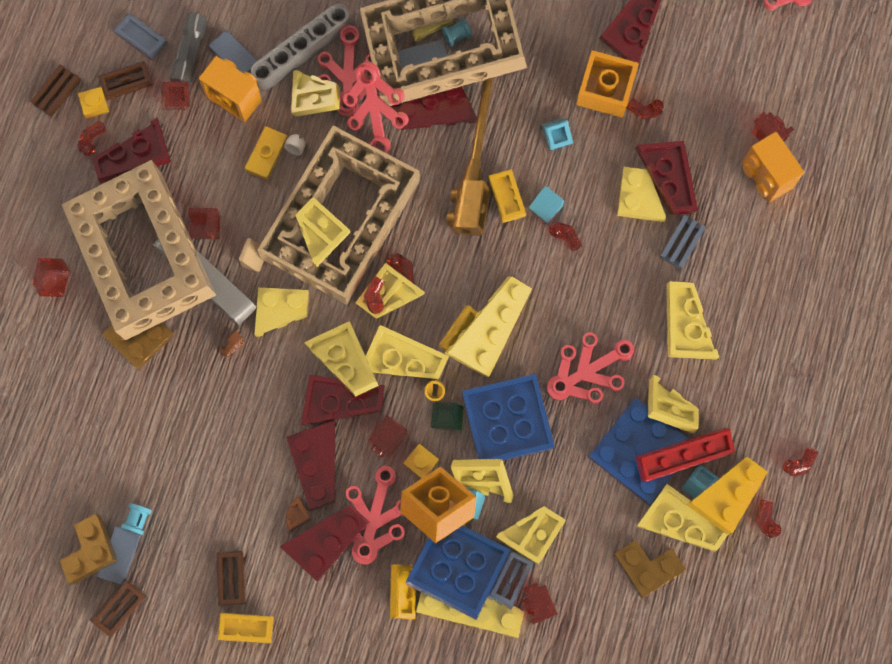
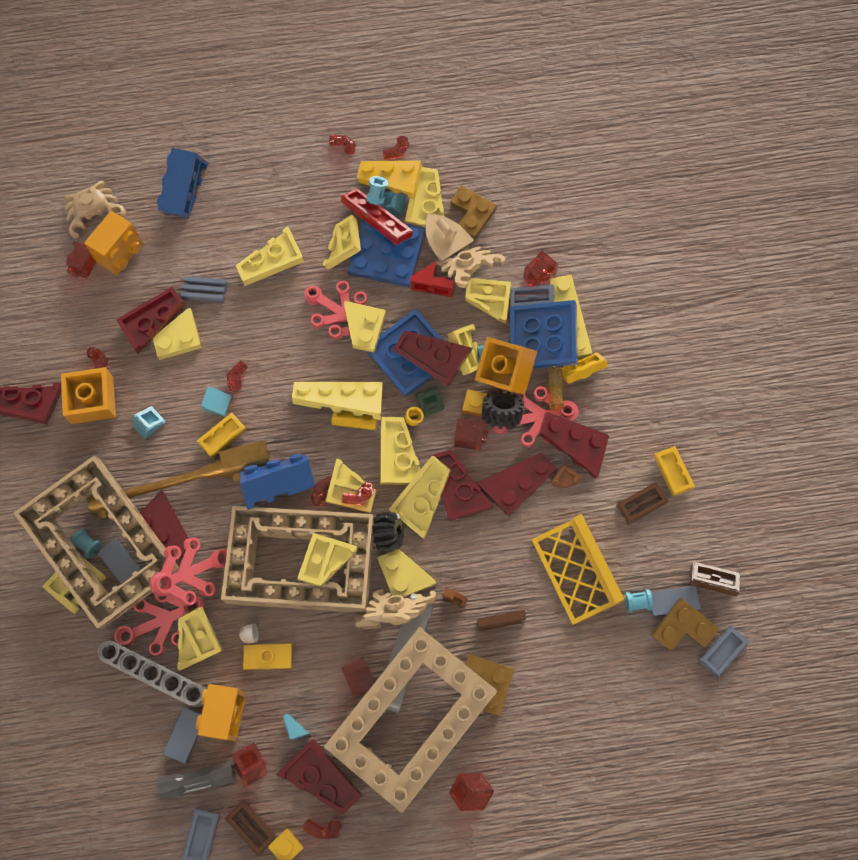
camera: 110 degrees left, 5 degrees down
(47, 578) = (723, 651): none -> sand blue tile
(186, 377) = (501, 620): none -> reddish brown tile
(188, 149) = (294, 729): none -> medium azure slope
(197, 499) = (596, 560): none -> yellow fence
(241, 277) = (396, 608): none -> tan animal
(324, 308) = (388, 531): none -> black gear
(382, 472) = (502, 409): none -> black tyre
(393, 549) = (556, 388): none -> clear yellow axle
(430, 222) = (276, 479): none -> blue wedge
(487, 435) = (433, 355): none -> dark red wing
(558, 383) = (364, 325): none -> light yellow wing
(583, 526) = (467, 263): none -> tan animal
(584, 475) = (427, 282): none -> red slope
(627, 519) = (445, 236): none -> tan shield
(716, 471) = (377, 189): none -> medium azure bush
(821, 263) = (180, 182): none -> blue wedge
(839, 164) = (88, 204): none -> tan animal

